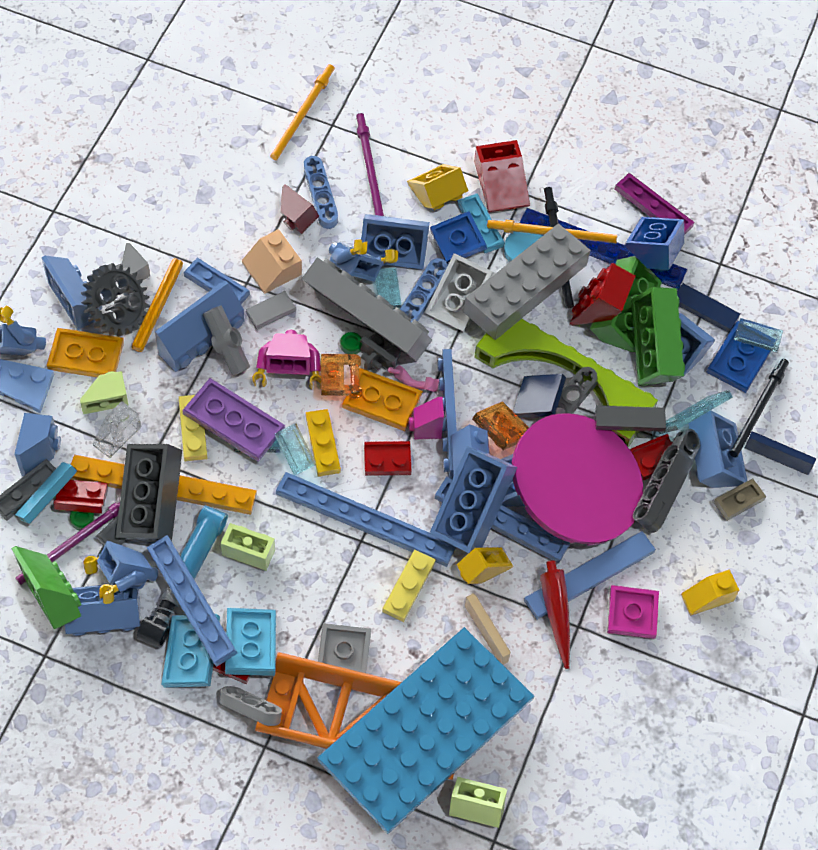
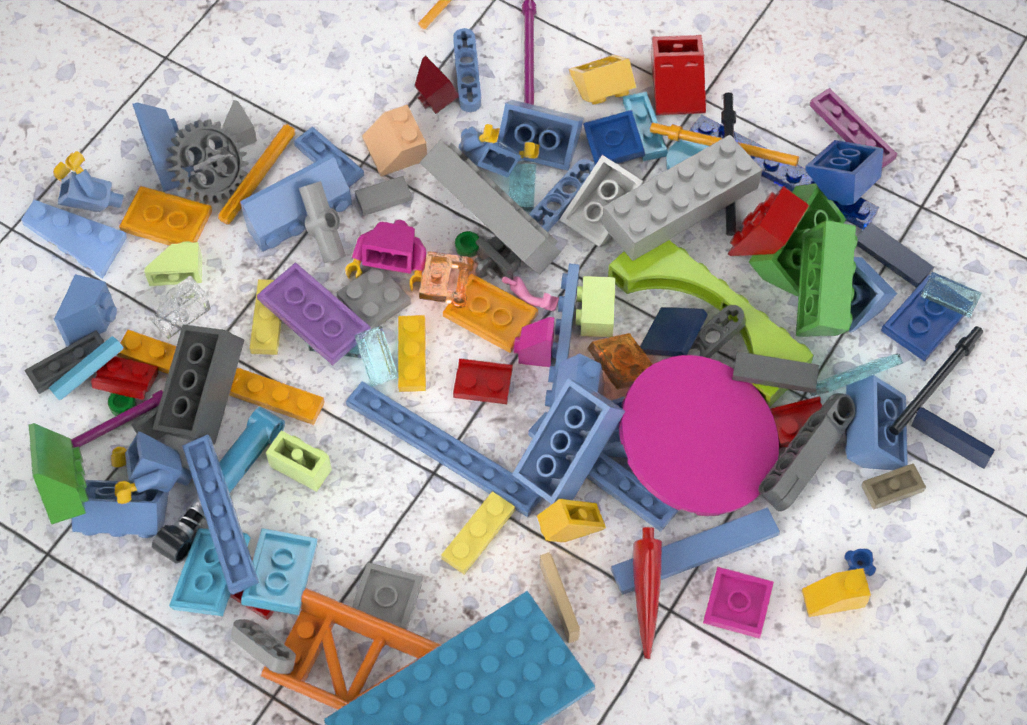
camera: 15 degrees right, 0 degrees up
(281, 398) = (374, 297): none -> light grey plate
(472, 382) = (597, 306): none -> yellowish green brick
(726, 559) = (864, 556): none -> blue plate

